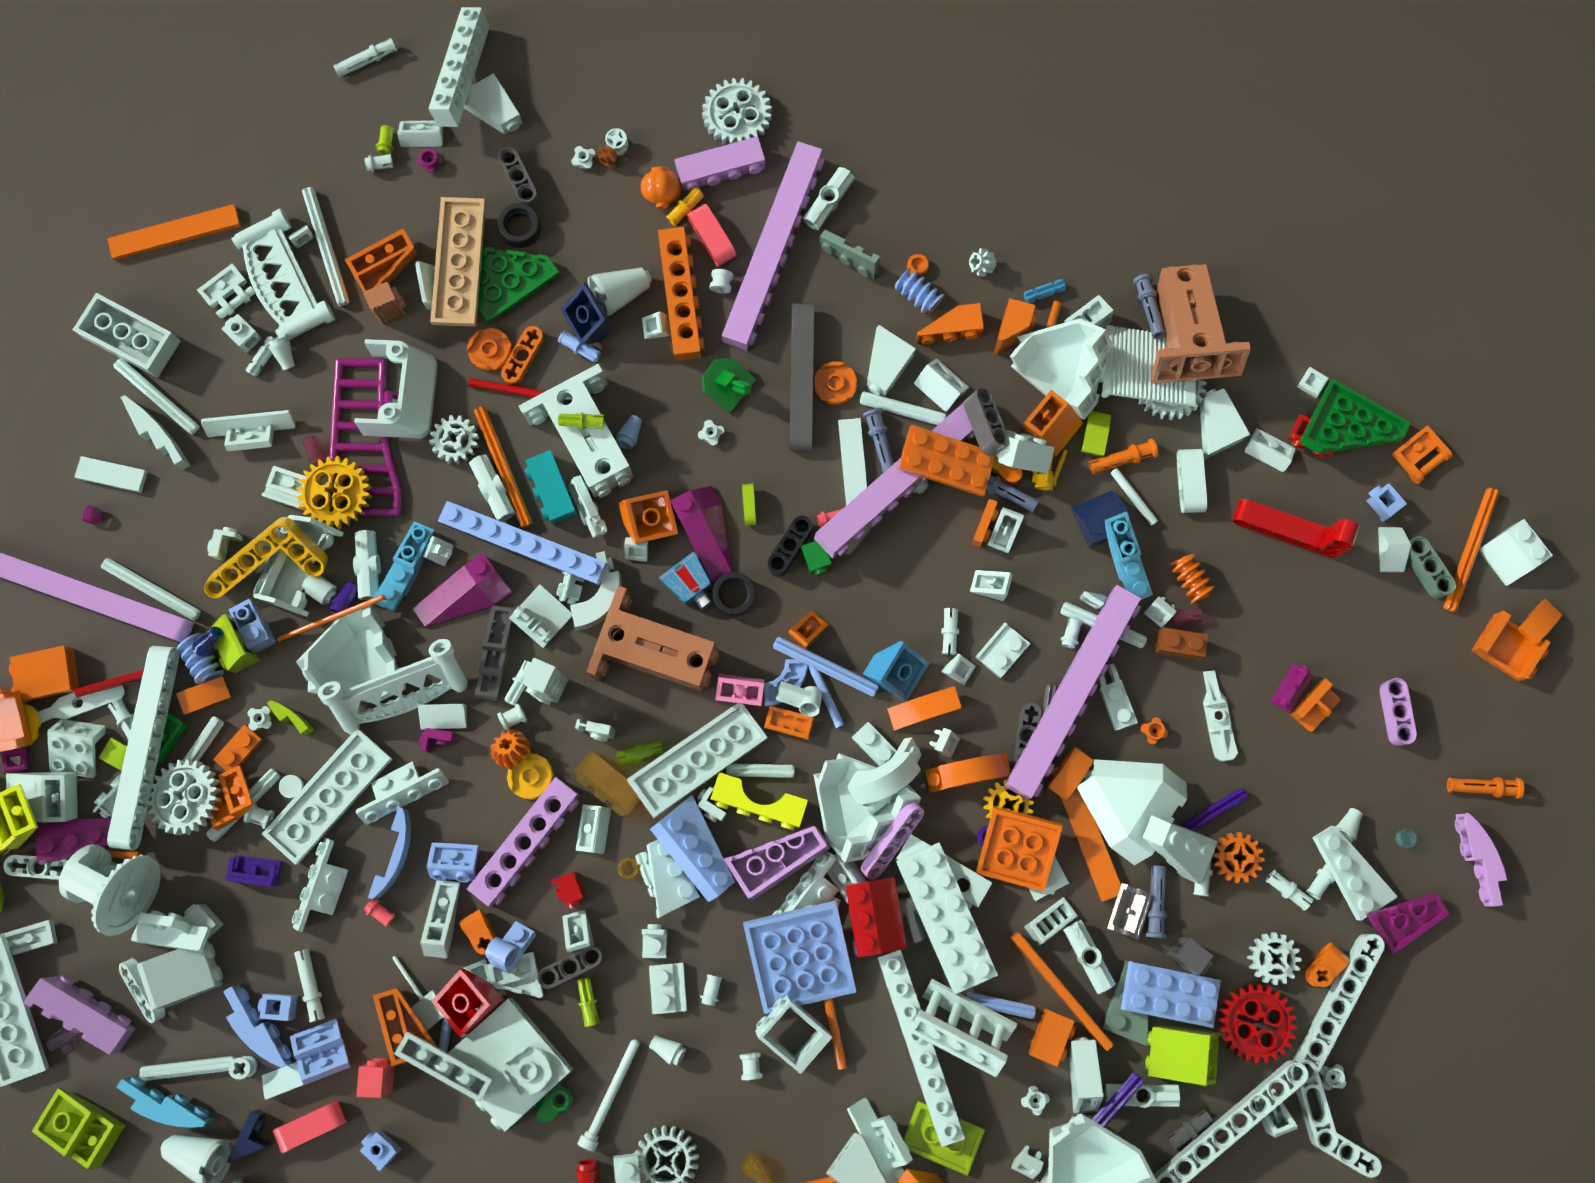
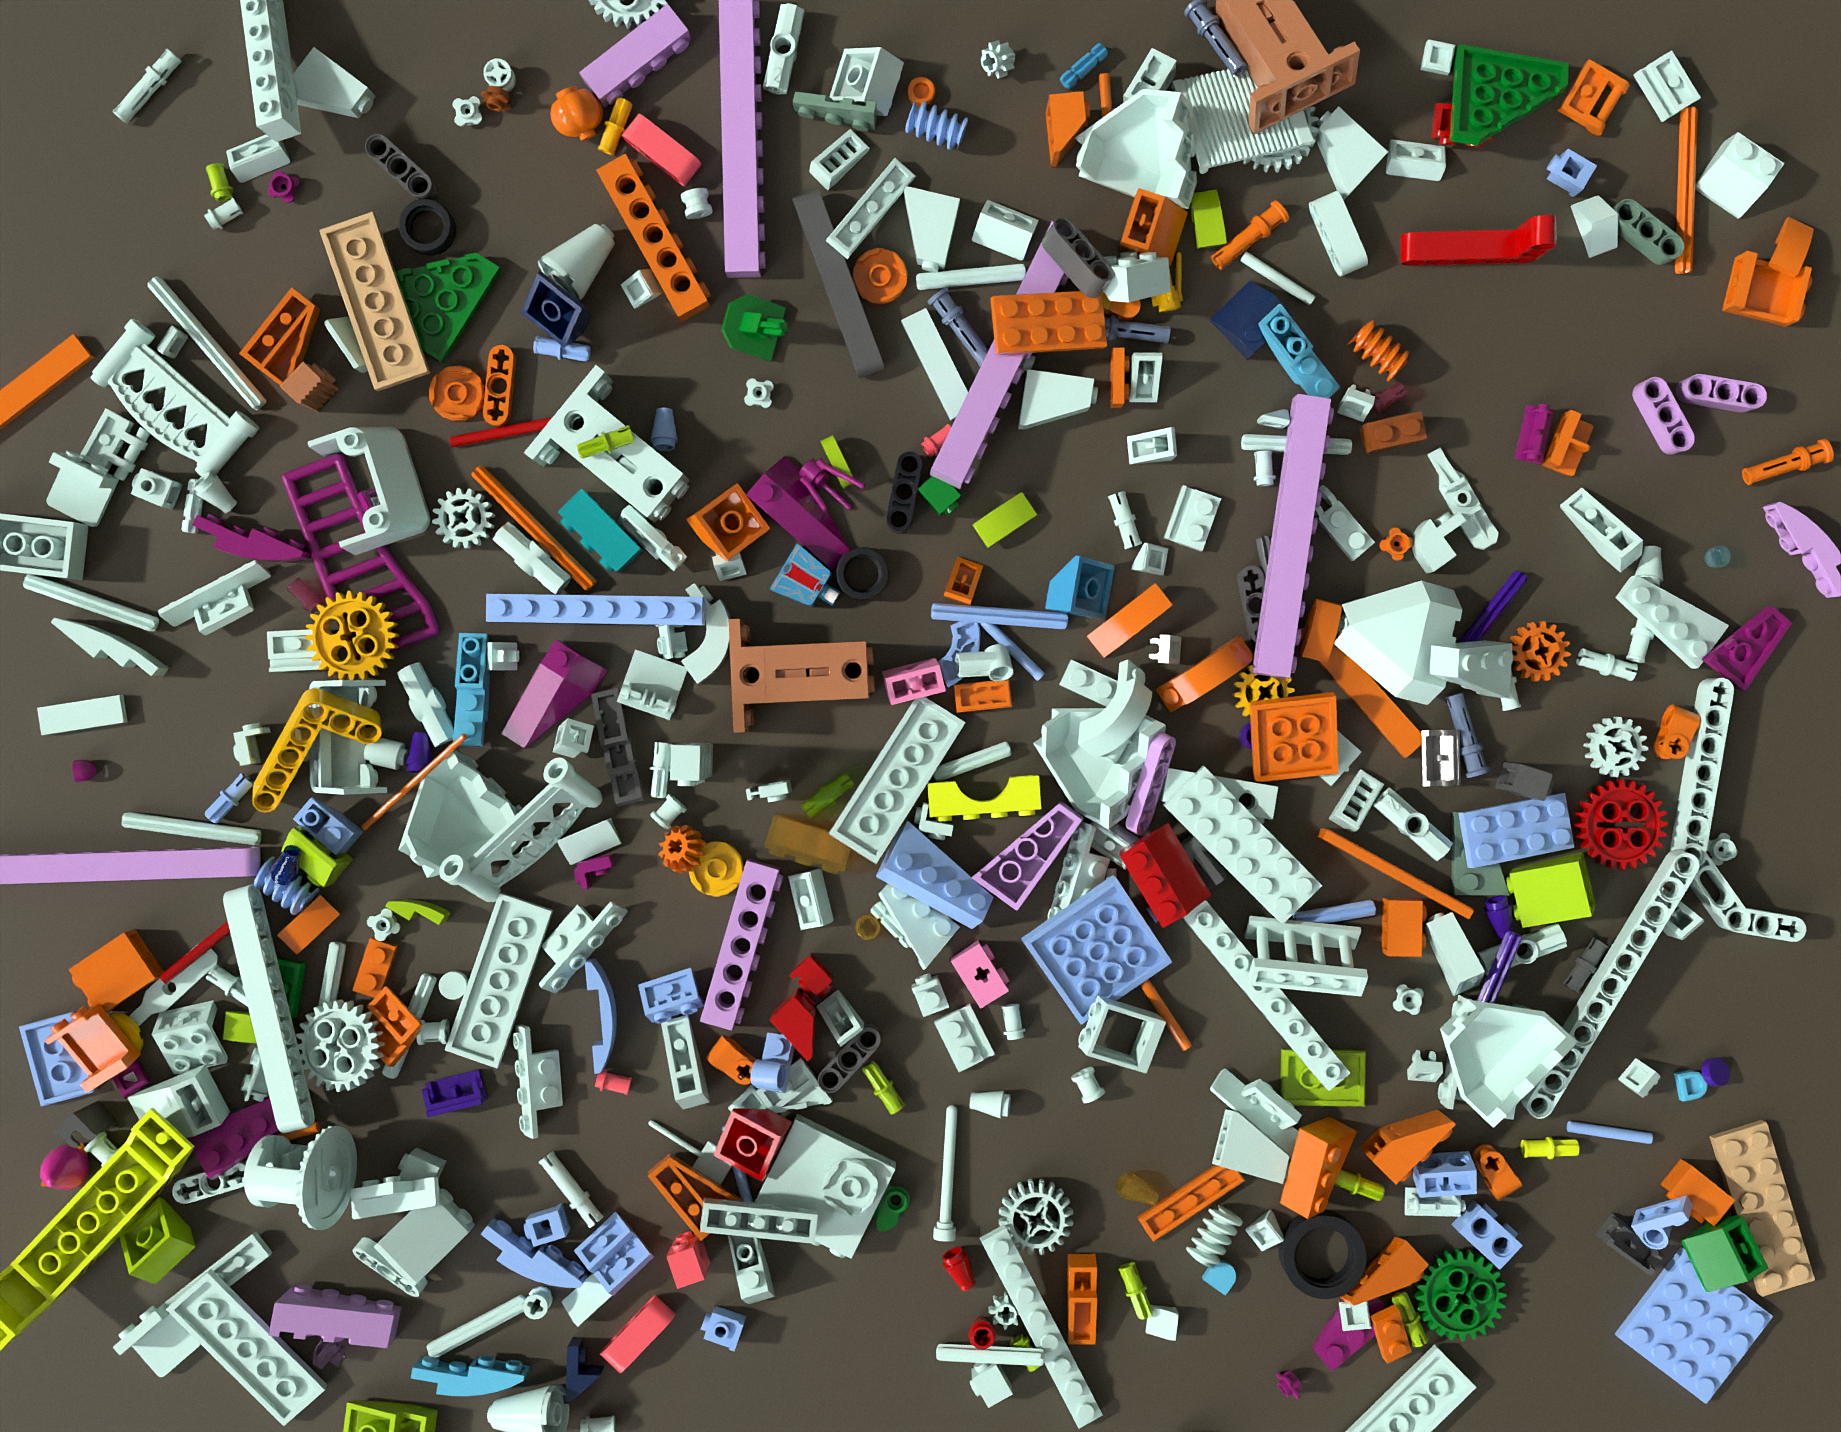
camera: 25 degrees left, 10 degrees up
(188, 312) = (80, 488): none -> light aqua bracket
(188, 577) = (229, 798): none -> light blue axle
(292, 399) = (255, 545): none -> magenta slope
(422, 1106) = (751, 1269): none -> light aqua slope
(464, 631) = (573, 738): none -> light aqua brick
(542, 920) = (797, 1021): none -> red slope
(696, 953) = (982, 990): none -> bright pink brick
(728, 506) = (814, 474): none -> magenta plant
(825, 294) = (826, 171): none -> light aqua slope
(847, 331) = (870, 208): none -> light aqua tile
(858, 596) = (1004, 519): none -> lime slope
(884, 238) = (867, 76): none -> light aqua slope
(930, 519) = (1054, 397): none -> light aqua slope
(958, 323) = (998, 145): orange slope -> none
(1134, 1058) = (1500, 914): none -> dark purple cone
(1180, 740) = (1429, 542): none -> light aqua brick
(1321, 782) = (1603, 530): none -> light aqua slope
(1460, 712) = (1733, 390): none -> lavender beam
(1481, 467) = (1666, 86): none -> light aqua plate

